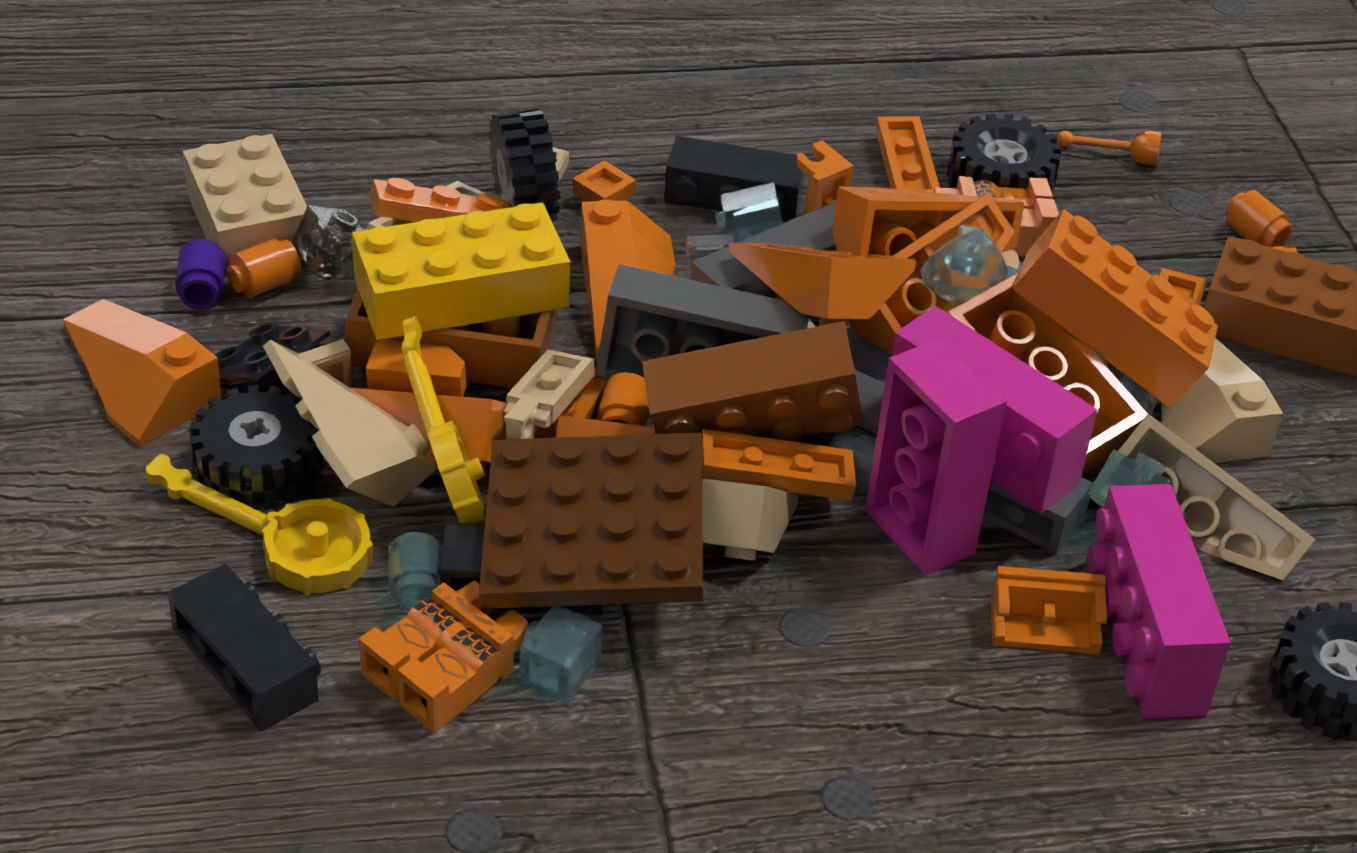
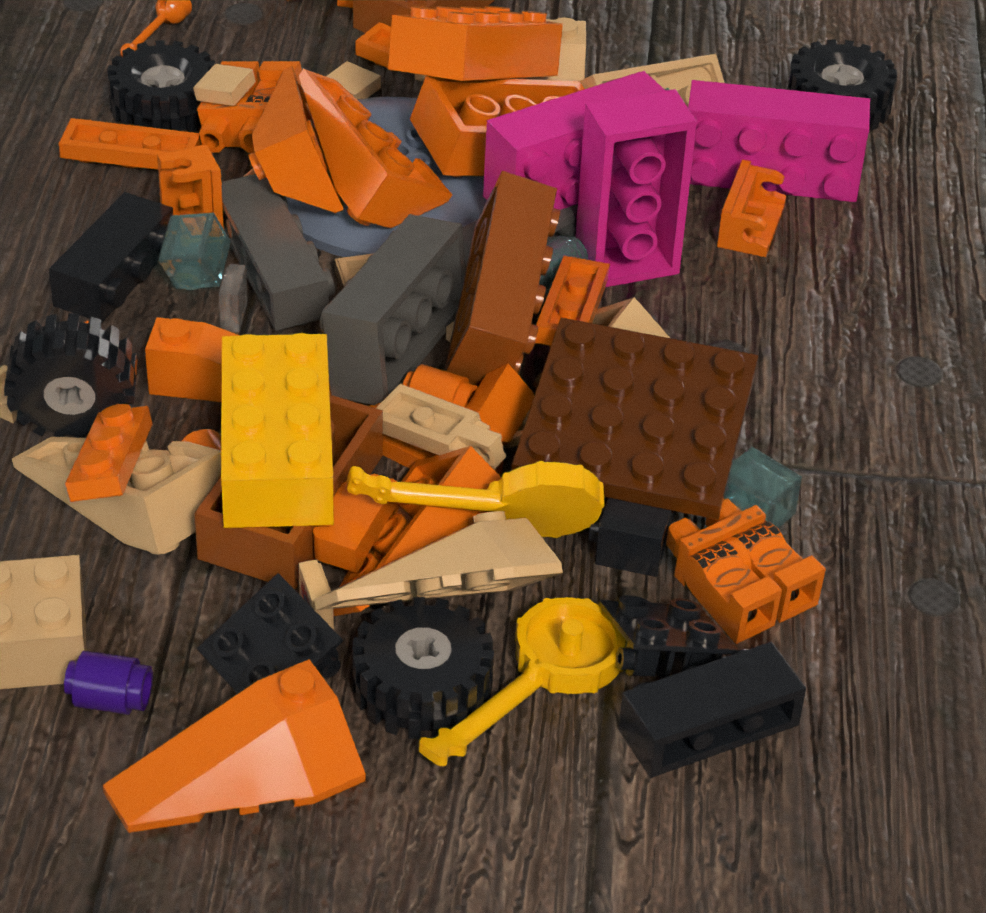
camera: 75 degrees left, 0 degrees up
(263, 267) = (117, 624): orange brick -> none
(326, 242) = (115, 558): clear smoke brick -> none
(331, 596) = (664, 636): none -> black hinge
(413, 568) = (634, 571): clear light blue brick -> none
(825, 282) = (401, 187): orange wedge -> none
(965, 266) = (402, 108): clear light blue piece -> none
(992, 178) = (224, 84): none -> tan tile

